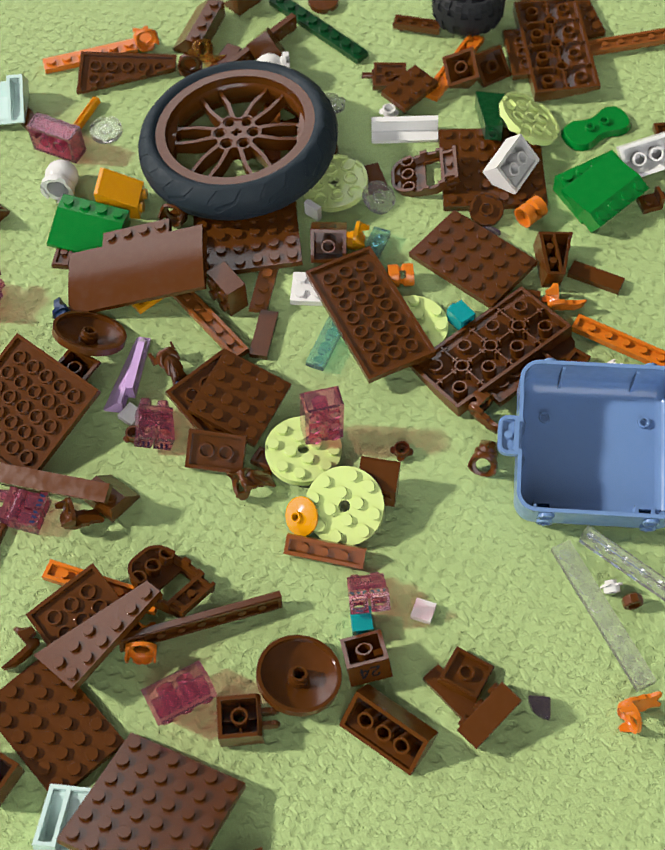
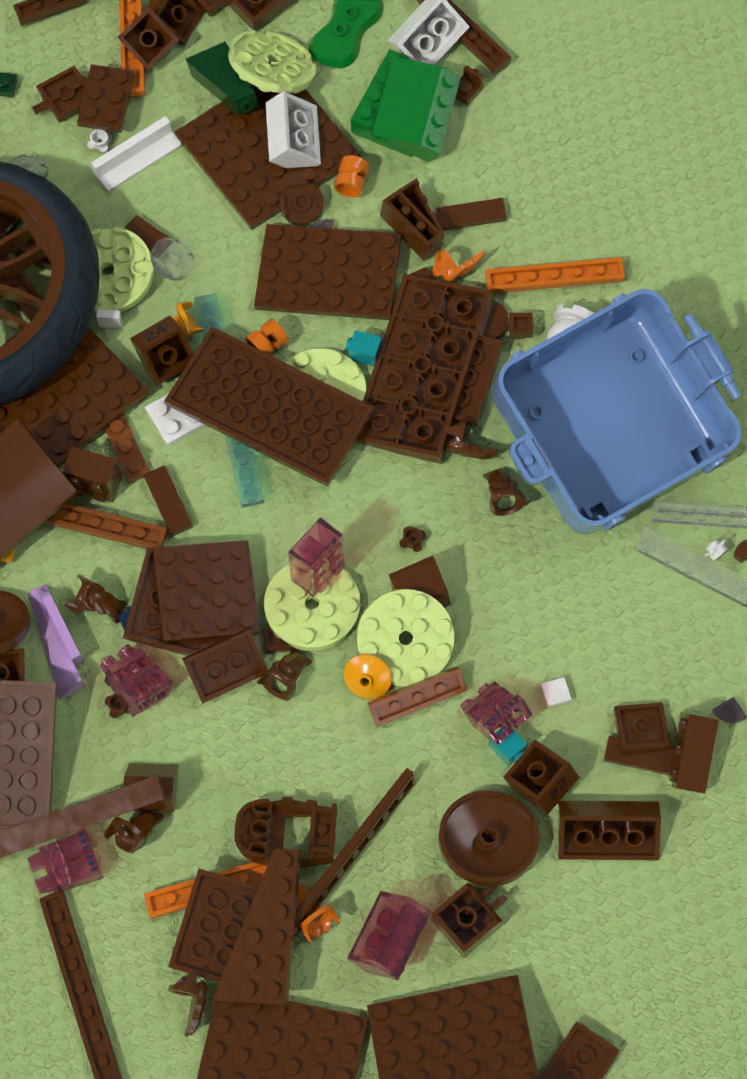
camera: 35 degrees left, 10 degrees up
(127, 415) = (94, 685): white tile -> none
(410, 176) = (184, 208): reddish brown slope -> none

